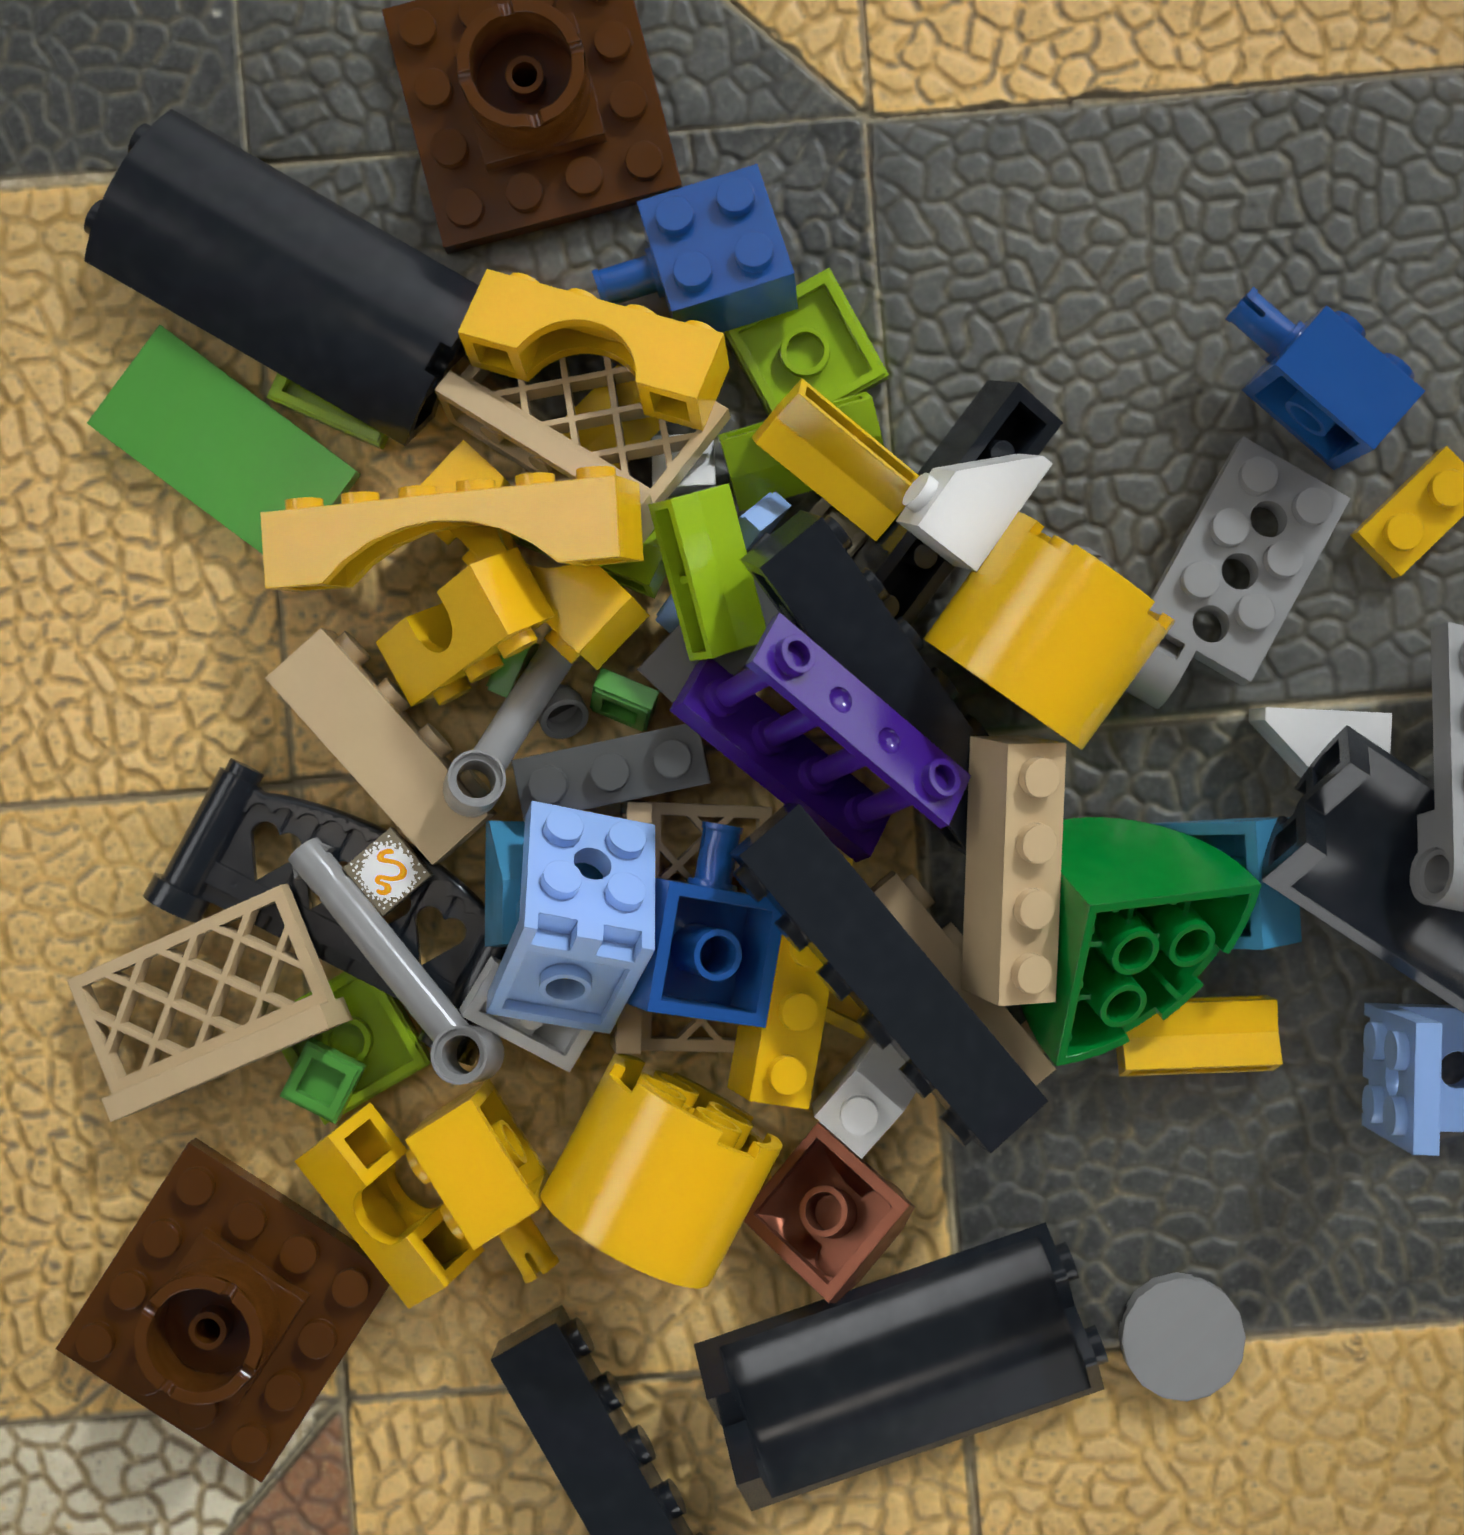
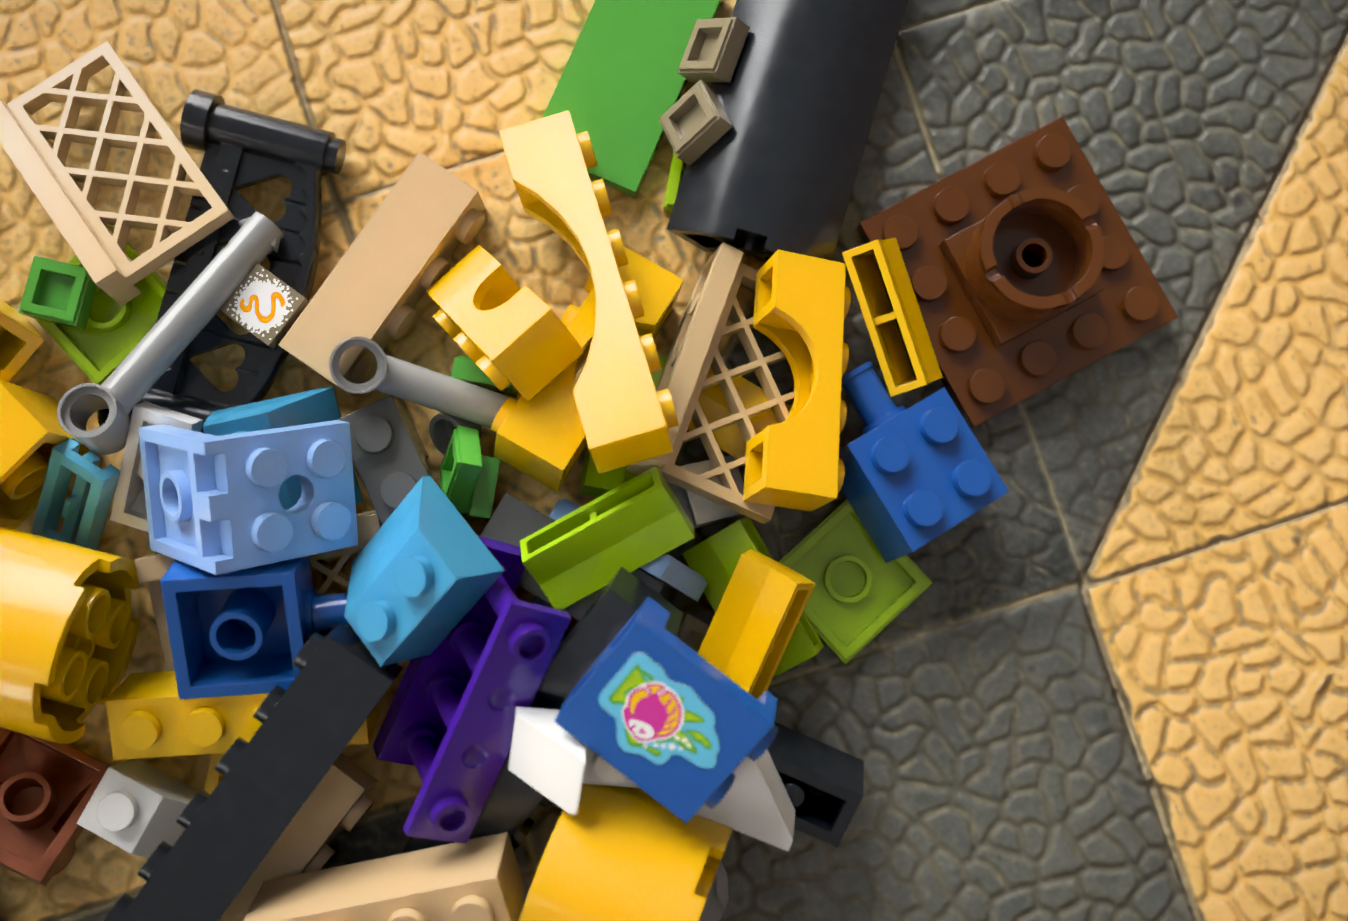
camera: 70 degrees right, 5 degrees down
(228, 351) = (713, 49): none -> dark tan tile
(301, 388) = (695, 122): none -> dark tan tile
(516, 1080) = (89, 502): none -> medium azure tile
(551, 249) = (881, 319): none -> yellow piece
(602, 708) = (461, 467): none -> bright green tile
(699, 764) = (417, 577): none -> dark azure slope
(893, 538) = (667, 715): none -> blue panel
(906, 642) = (556, 760): none -> white slope

